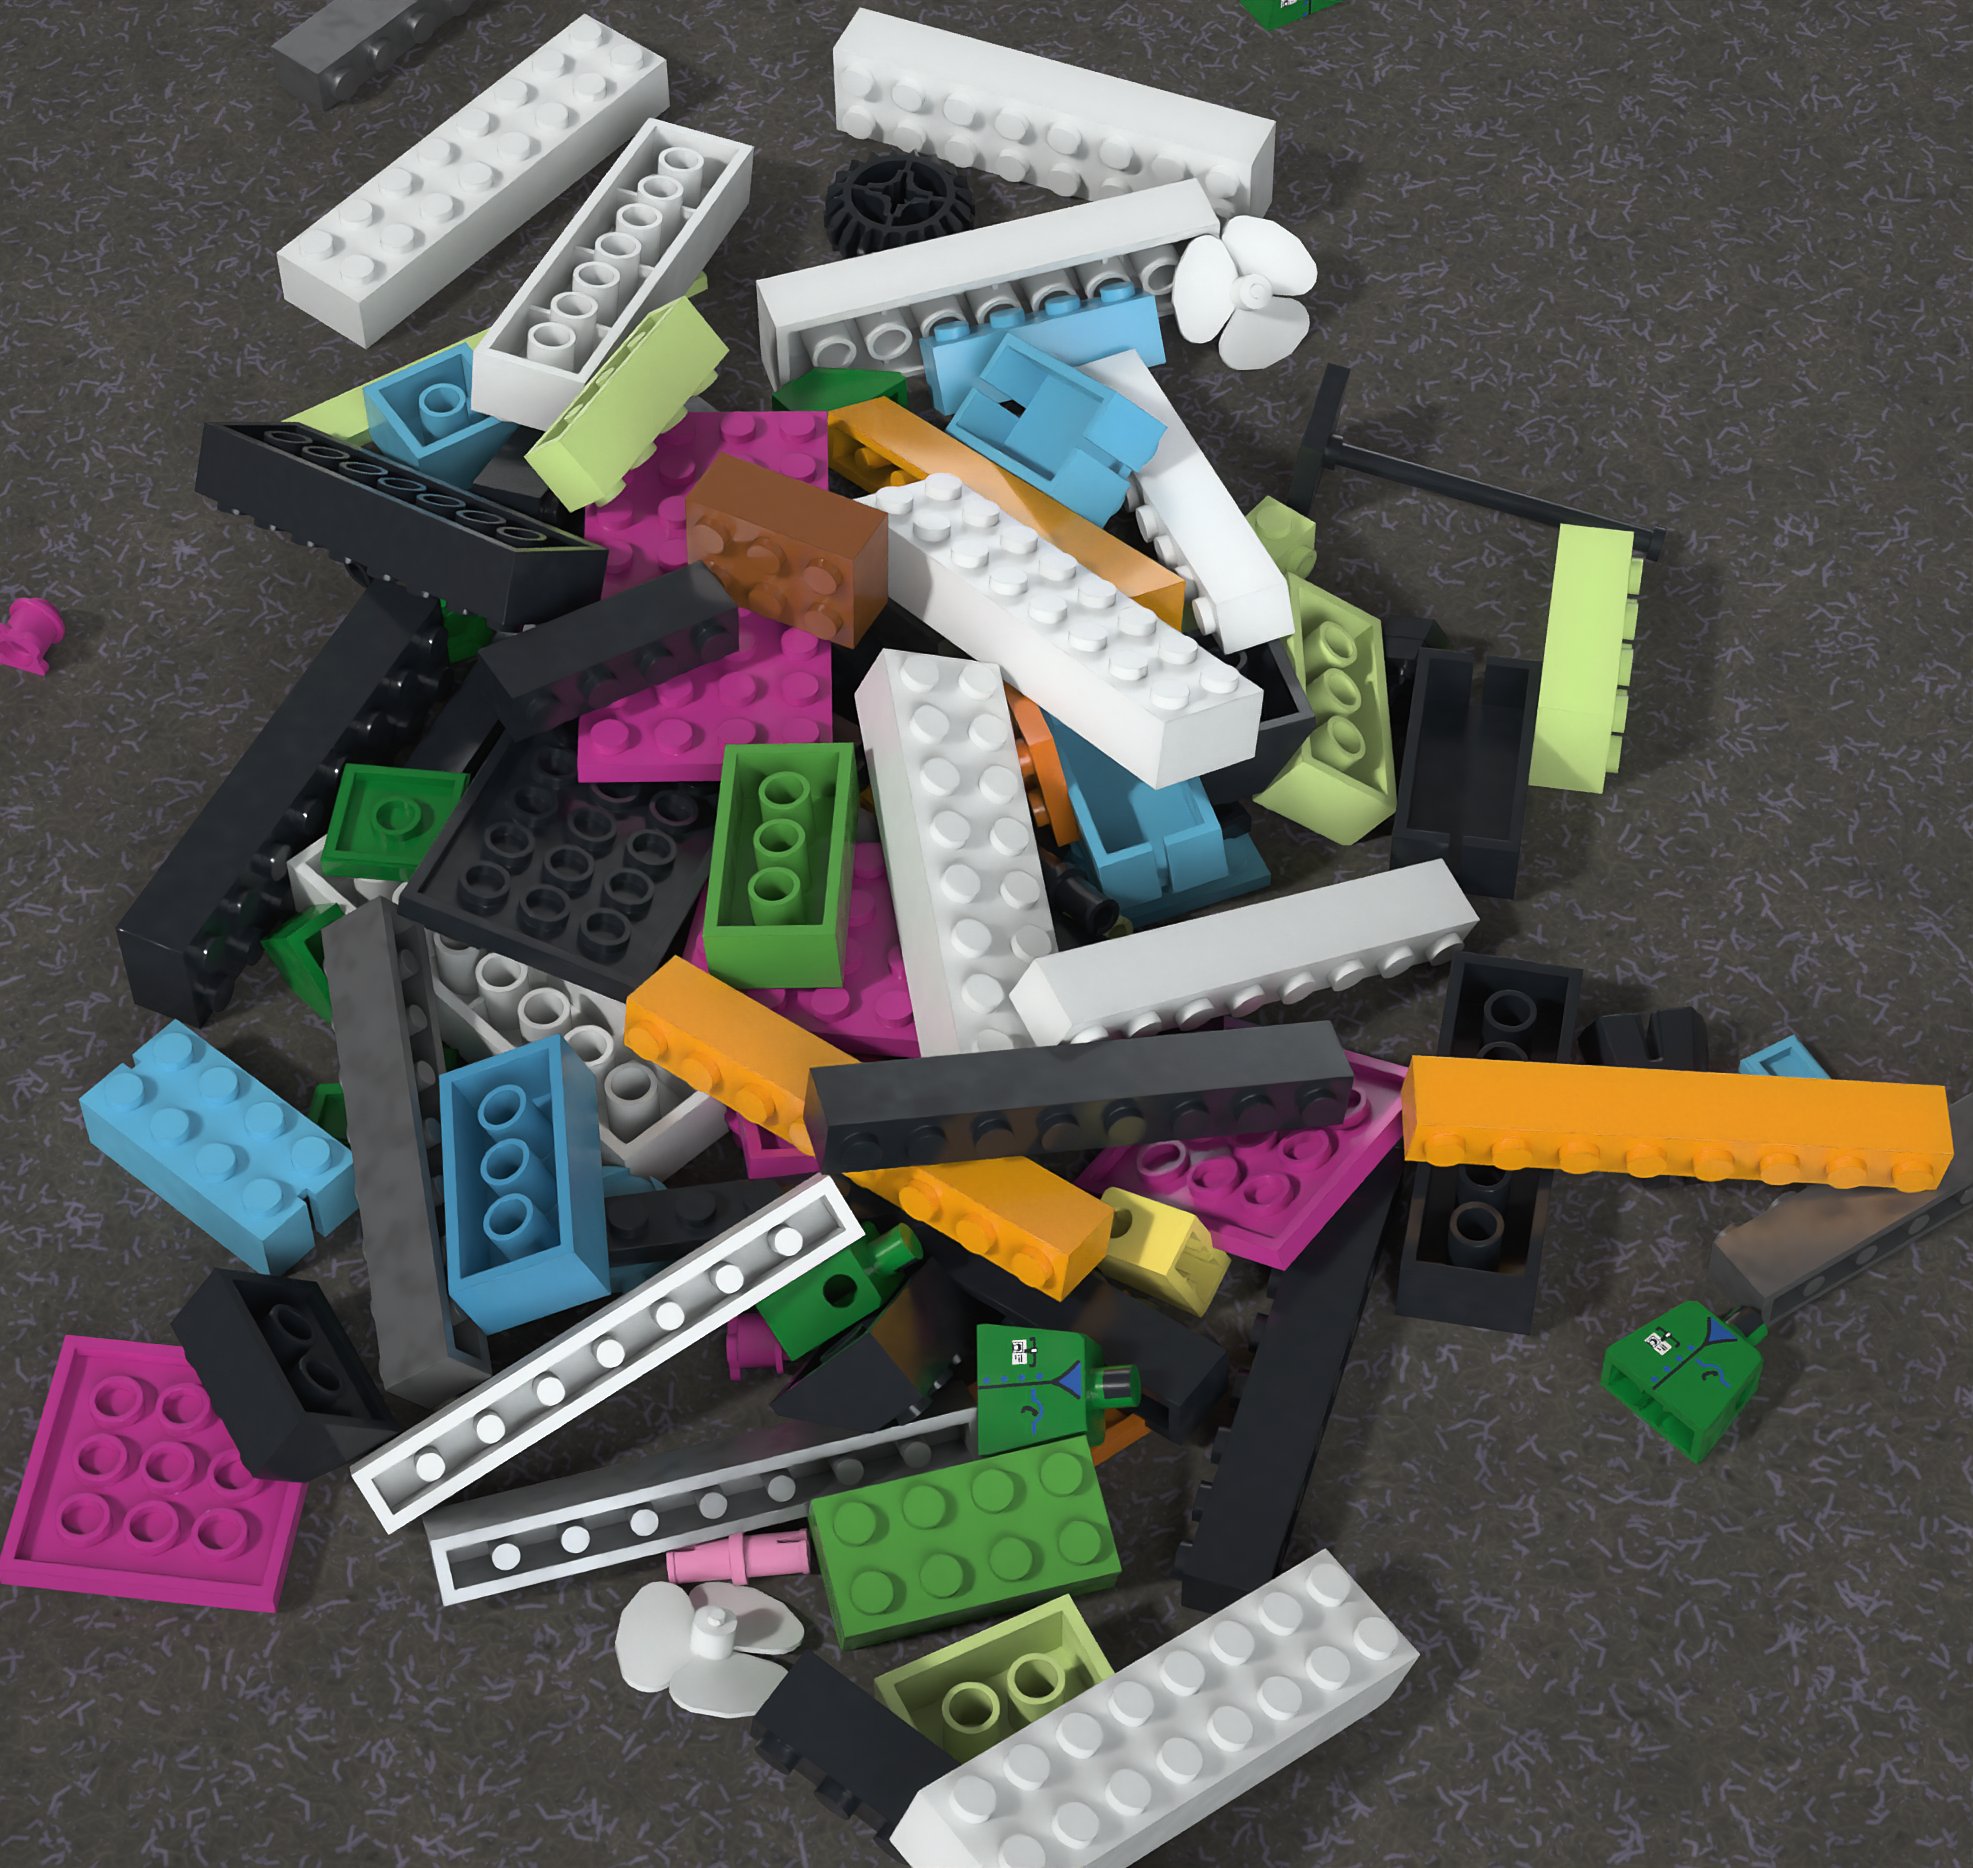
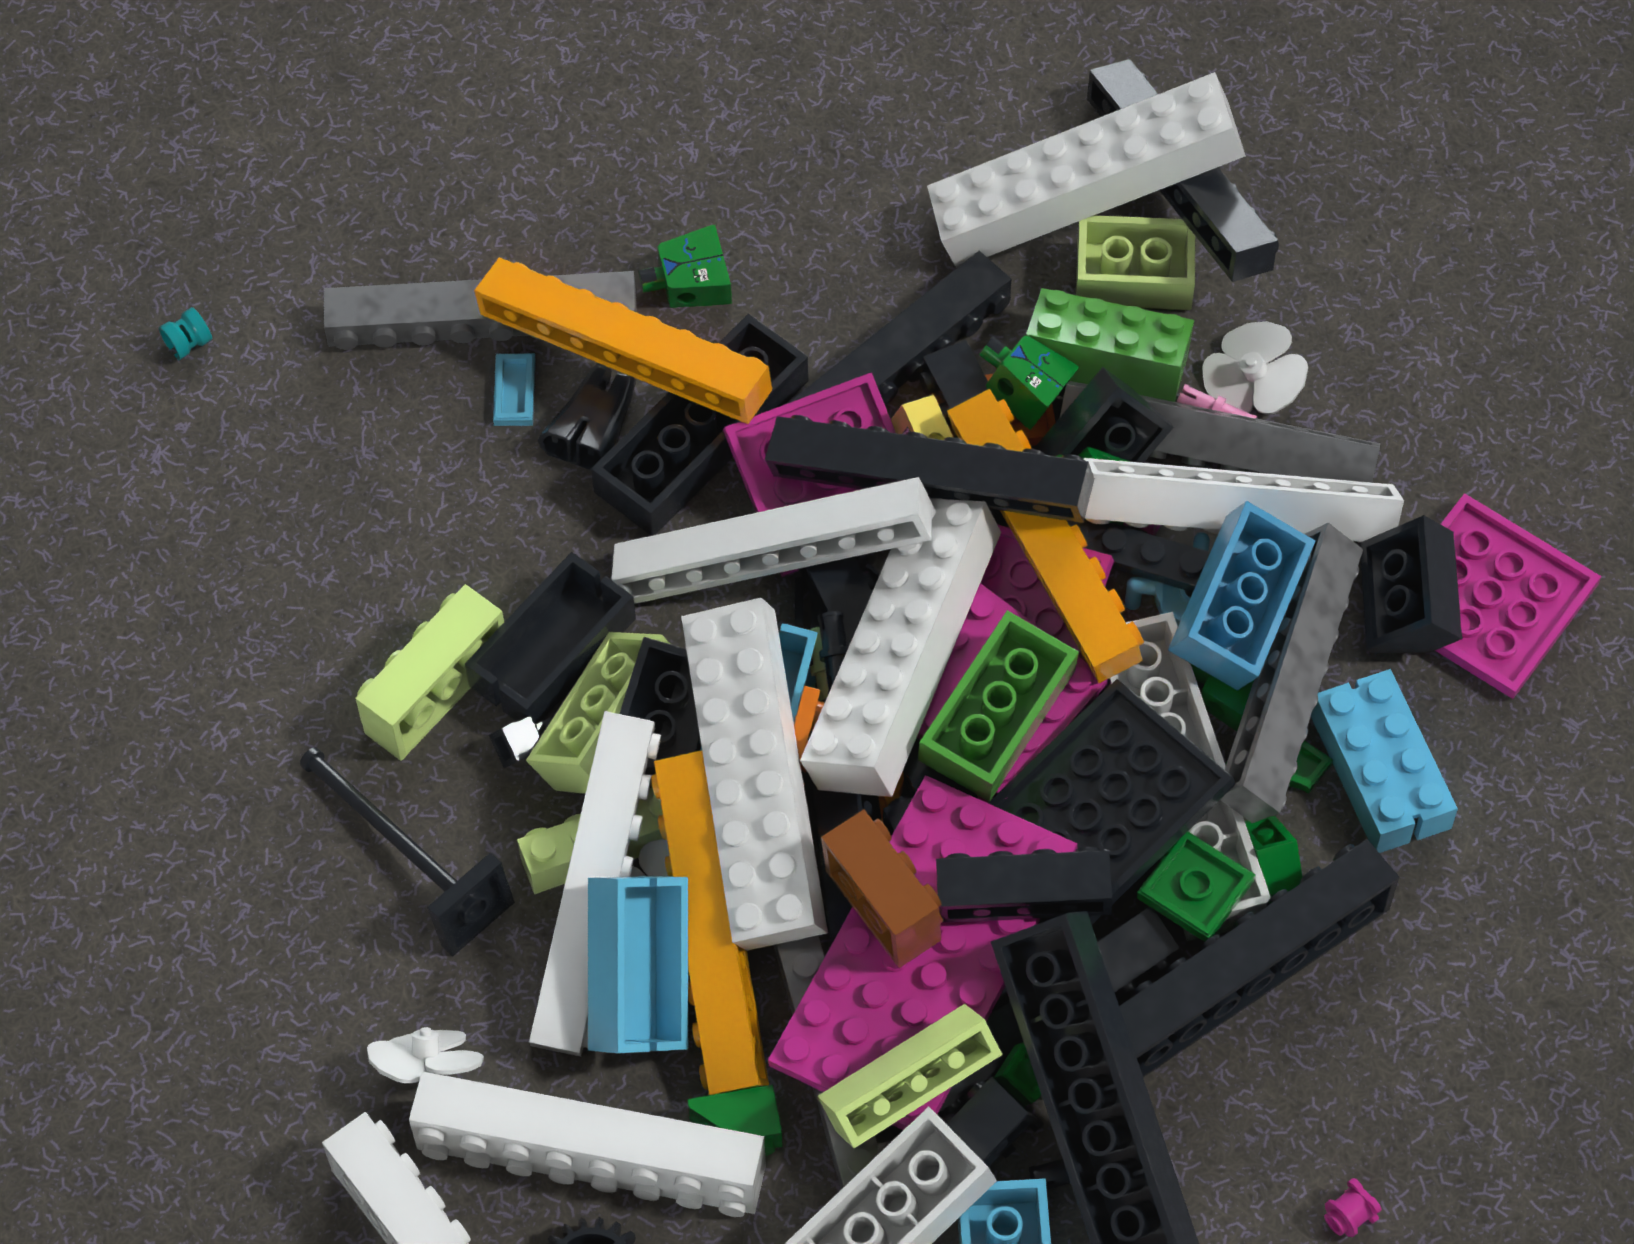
camera: 150 degrees left, 10 degrees up
(1066, 330) = (583, 1080): medium azure brick -> none

